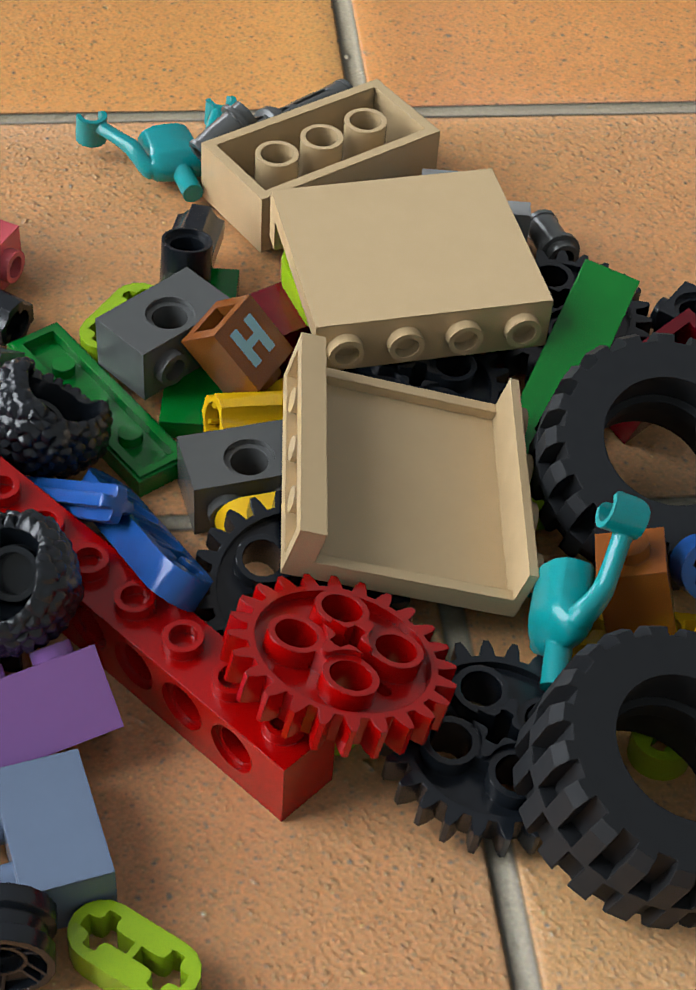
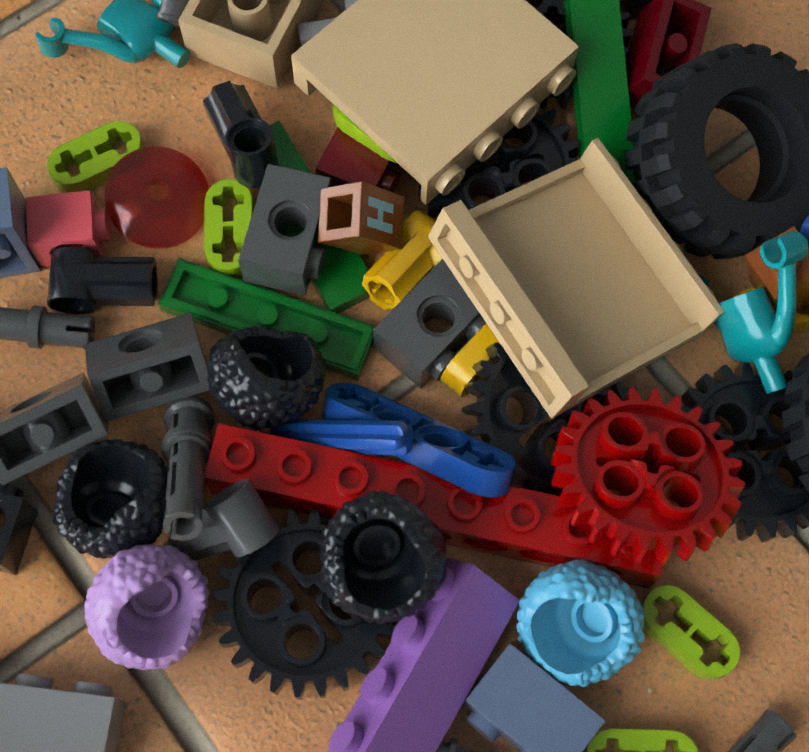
camera: 30 degrees left, 25 degrees up
(57, 225) = (92, 155): none -> lime beam
(73, 290) = (152, 221): none -> clear red dish
(167, 773) = (580, 623): none -> medium azure hair
(272, 879) = (698, 622): none -> lime beam

